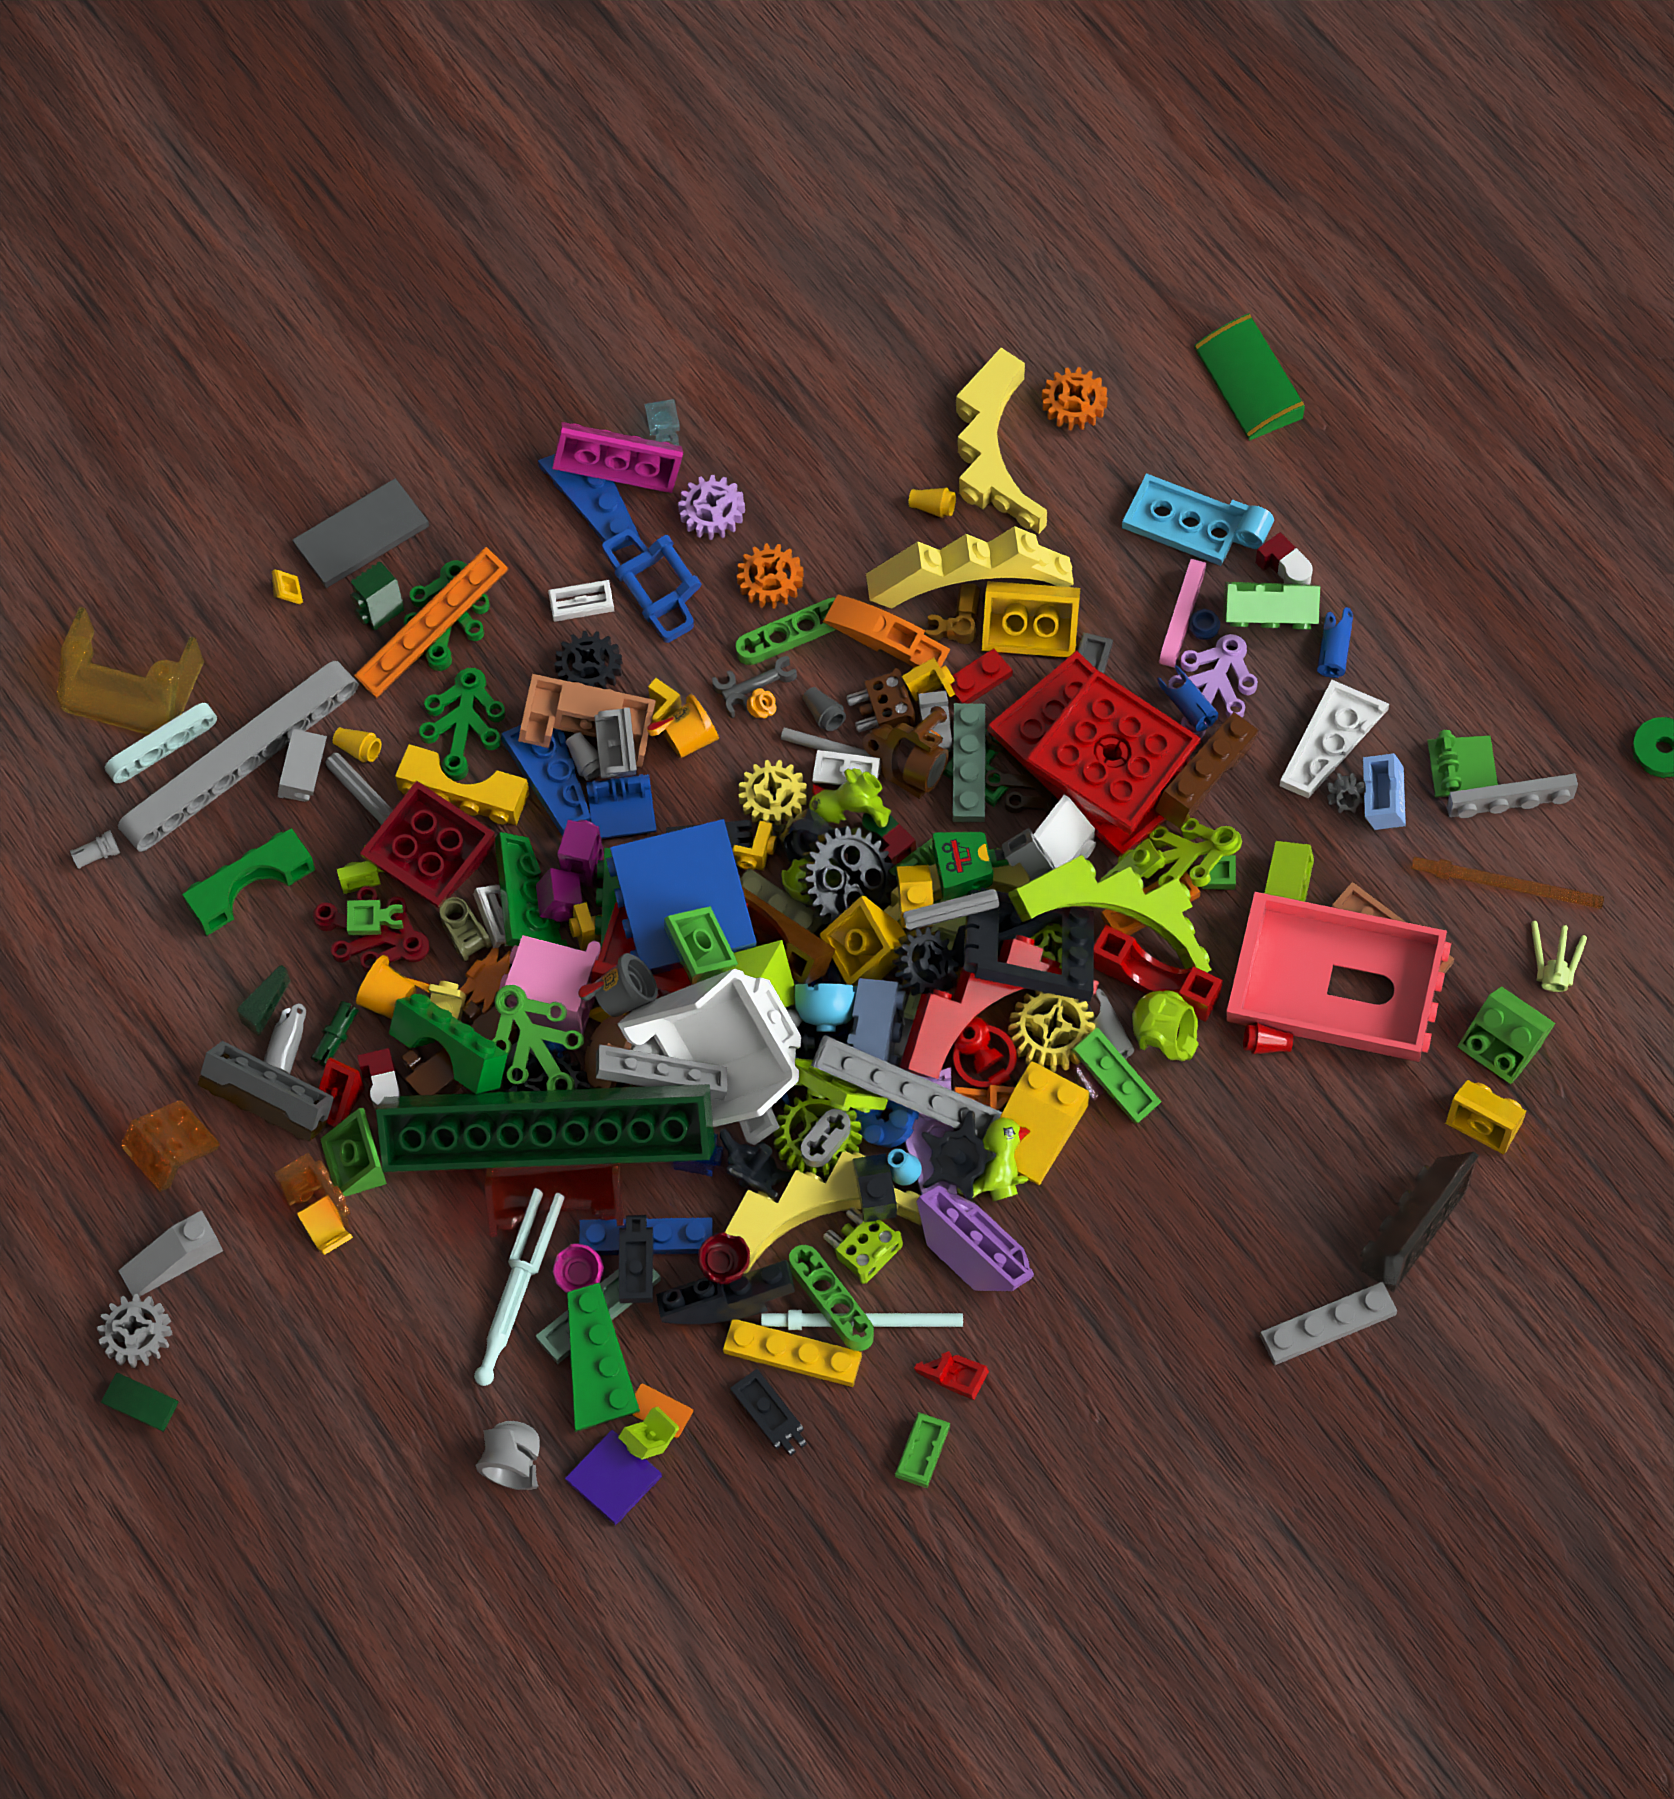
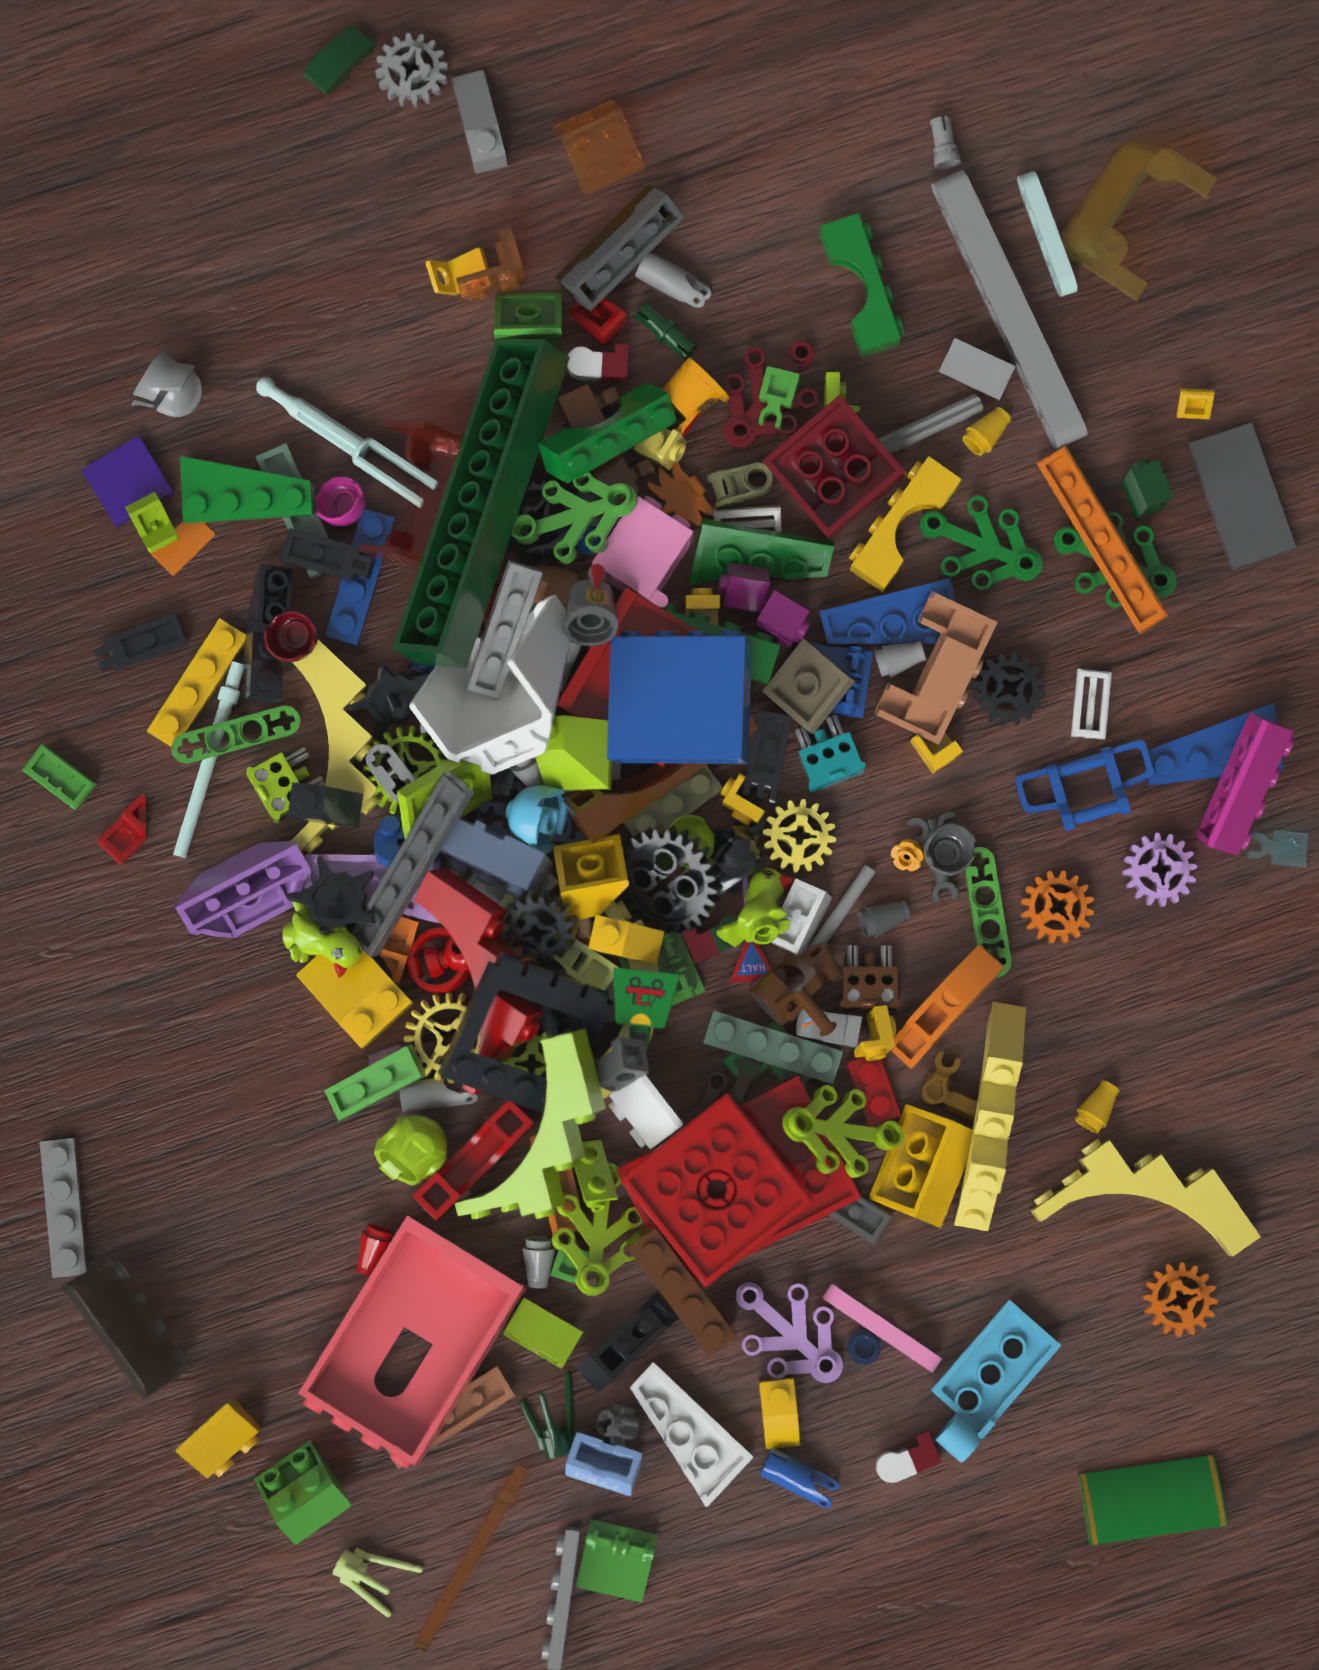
camera: 105 degrees right, 20 degrees up
(262, 1002) = (717, 265): clear green slope -> none
(615, 743) = (890, 686): light grey hinge -> none
(634, 813) = (808, 686): none -> dark tan plate
(686, 728) = (897, 767): light orange hat -> none
(699, 944) = (613, 697): bright green slope -> none
(705, 788) = (832, 770): none -> teal piece
(746, 666) = (949, 849): none -> dark grey hair
(900, 803) = (751, 961): none -> piece
(904, 1167) = (342, 848): medium azure cone -> none
(951, 909) = (581, 964): light grey axle -> none
(1030, 700) = (837, 1131): none -> lime plant
(1191, 702) = (764, 1297): blue piece -> none
(1224, 900) = (538, 1260): none -> light grey cone
(1271, 604) = (858, 1421): wedge -> none
(1274, 807) = (626, 1343): none -> black slope
(1283, 672) = (779, 1412): none -> yellow slope
(1376, 841) = (555, 1440): none -> dark green plant

